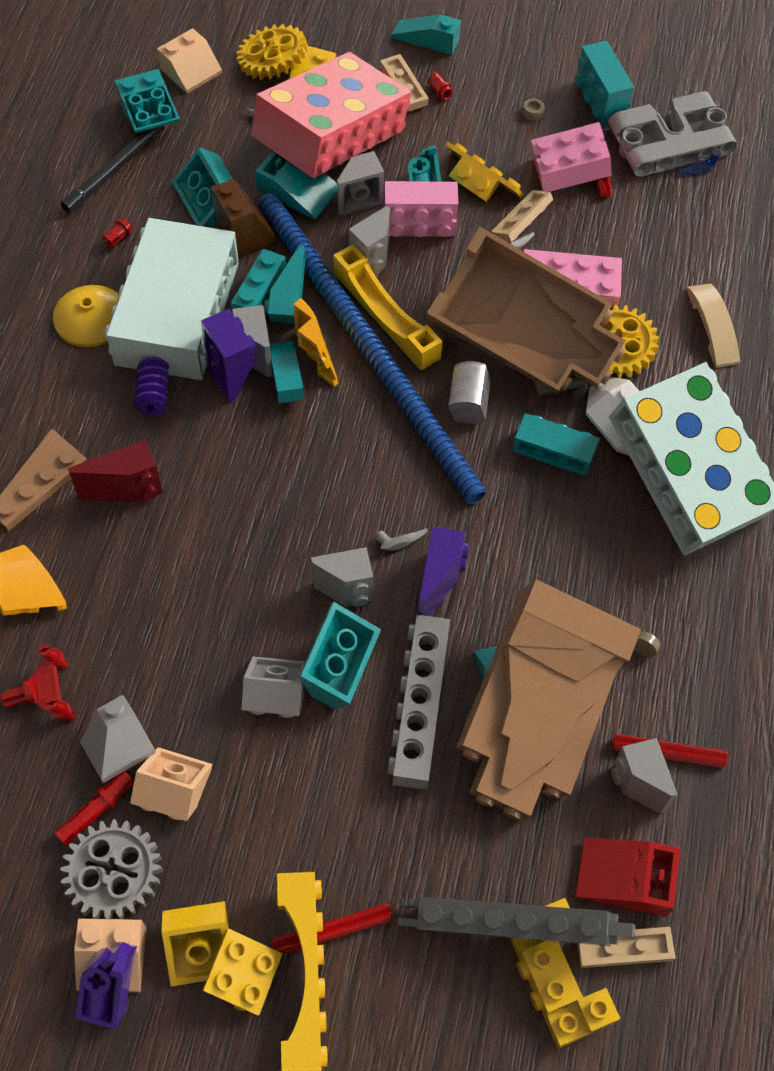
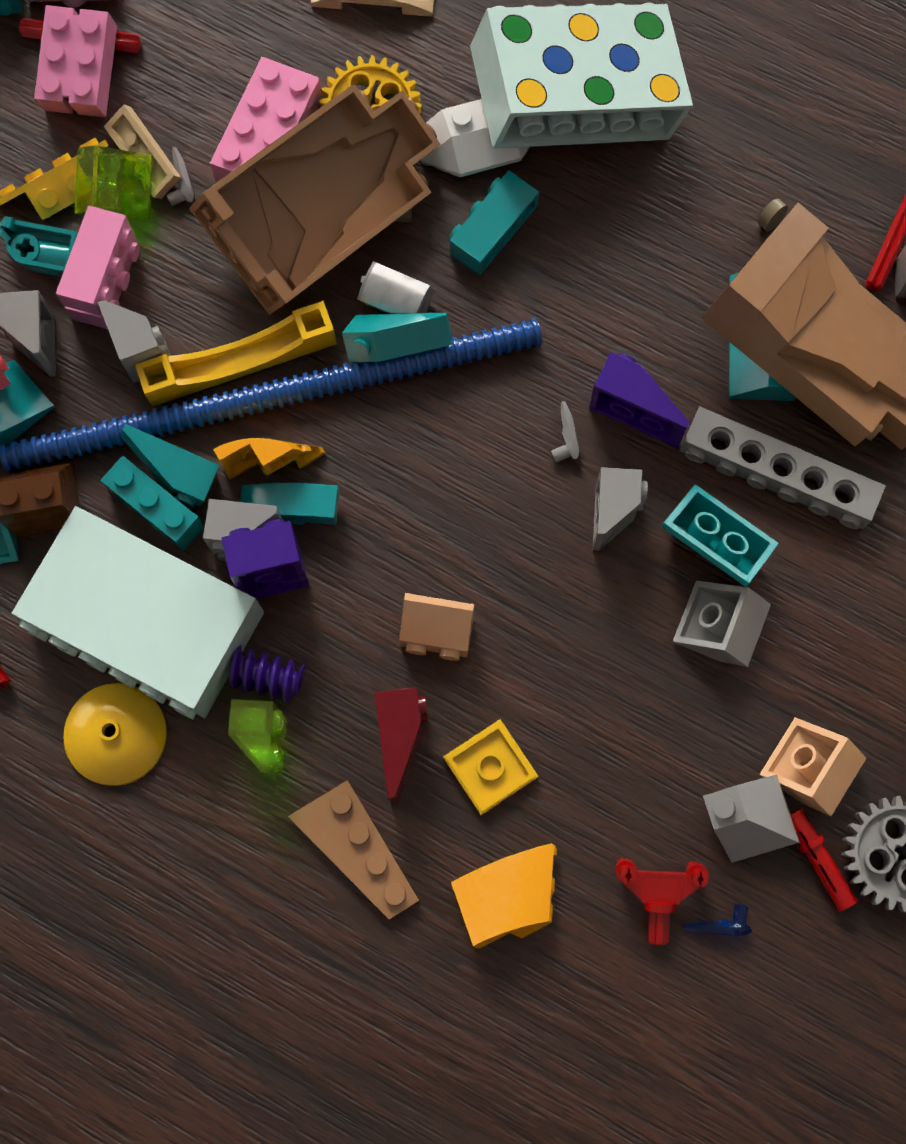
camera: 70 degrees left, 15 degrees up
(26, 755) = (736, 927): none -> clear blue bar
(101, 389) = (256, 731): none -> clear neon green slope
(119, 551) = (490, 767): none -> yellow tile
(214, 482) = (436, 626): none -> light nougat slope
(433, 395) = (395, 335): none -> teal slope
(488, 203) = (114, 181): none -> clear neon green slope

